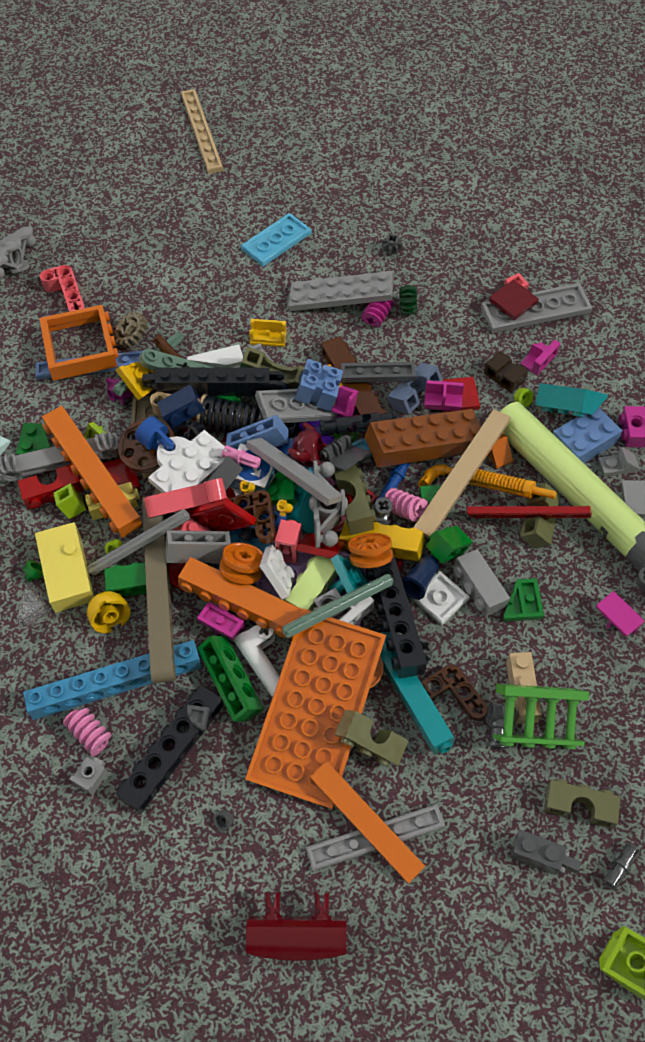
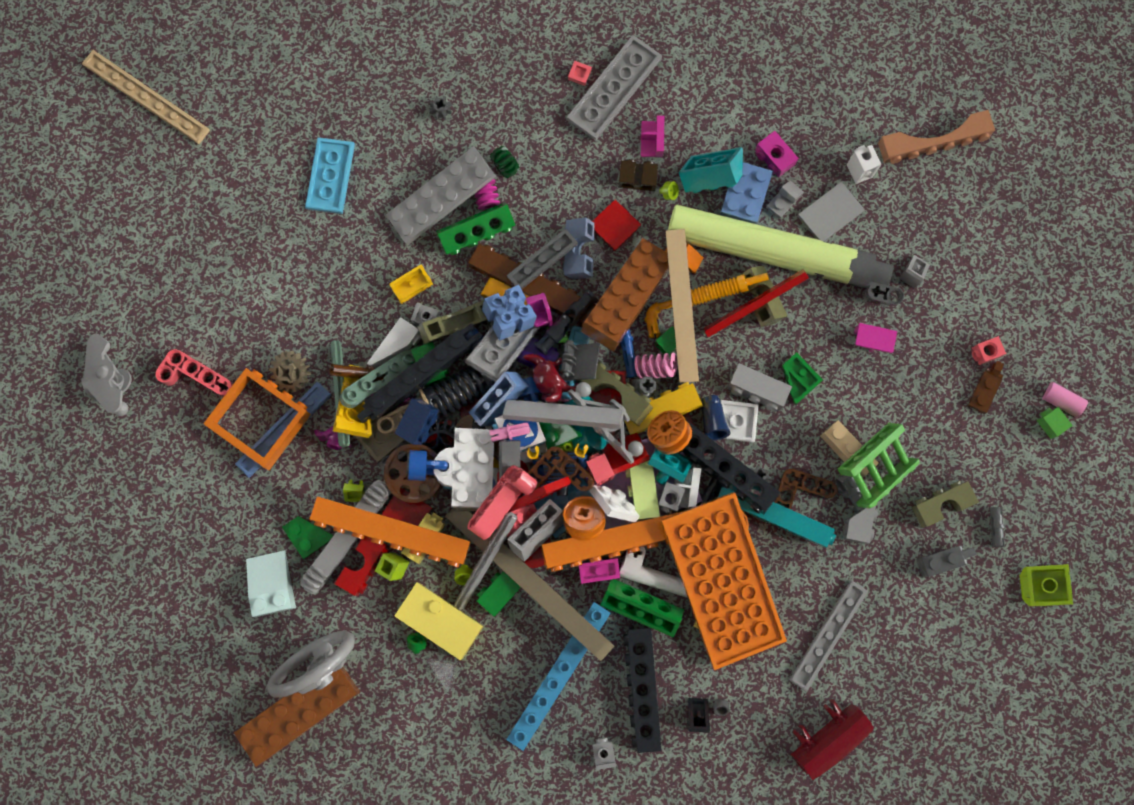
camera: 40 degrees left, 20 degrees up
(87, 731) = (575, 725): bright pink piece -> none
(107, 611) = (504, 629): yellow cylinder -> none
(196, 809) = (698, 715): none -> black slope
(198, 716) = (647, 654): dark grey tile -> none
(323, 317) = (465, 226): none -> green brick
(337, 605) = (685, 499): sand green axle -> none
(355, 731) = (779, 576): olive arch -> none
(367, 822) = (817, 632): orange tile -> none
(443, 395) = (609, 241): dark pink panel -> none
(448, 543) = (715, 375): green brick -> none
(482, 759) = (859, 526): none -> light grey slope
(513, 299) = (592, 96): dark red tile -> none

